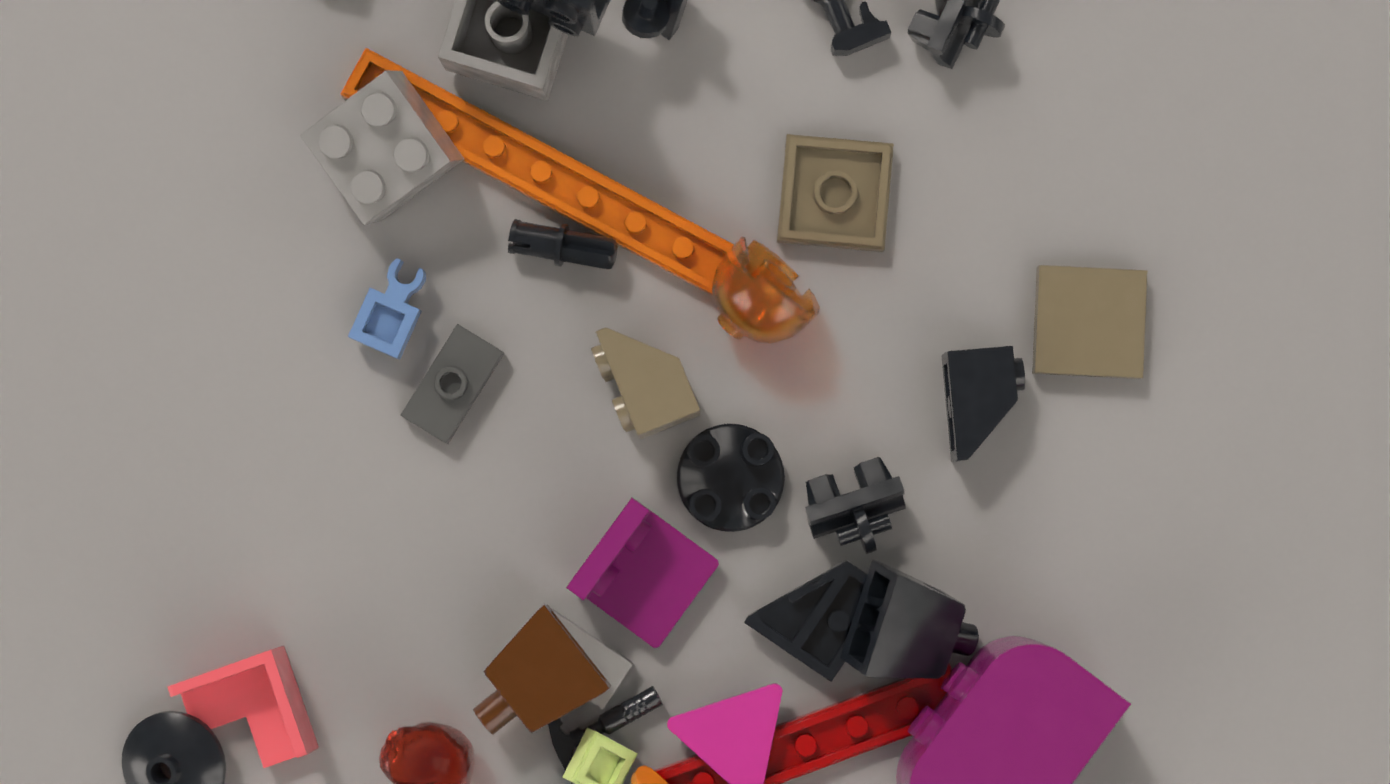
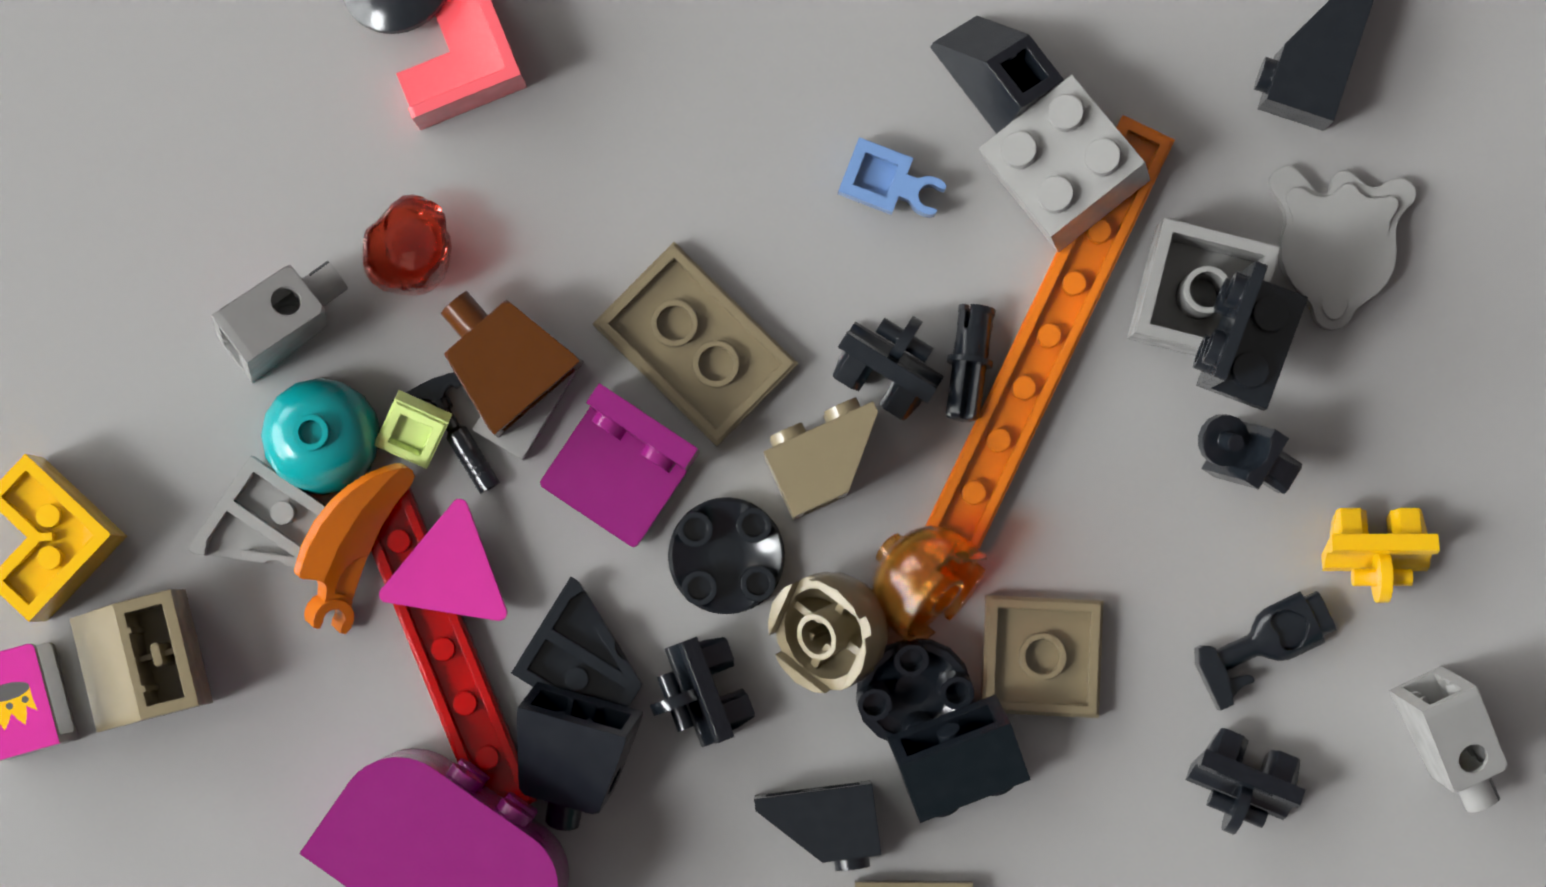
camera: 85 degrees right, 0 degrees up
(291, 205) = (996, 68): none -> black slope
(452, 384) = (814, 251): dark grey plate -> none
(532, 498) = (695, 344): none -> dark tan tile
(548, 337) = (868, 351): none -> black hips
(805, 385) = (828, 631): none -> dark tan cylinder
(864, 310) = (912, 686): none -> black dish
(926, 271) = (958, 758): none -> black brick

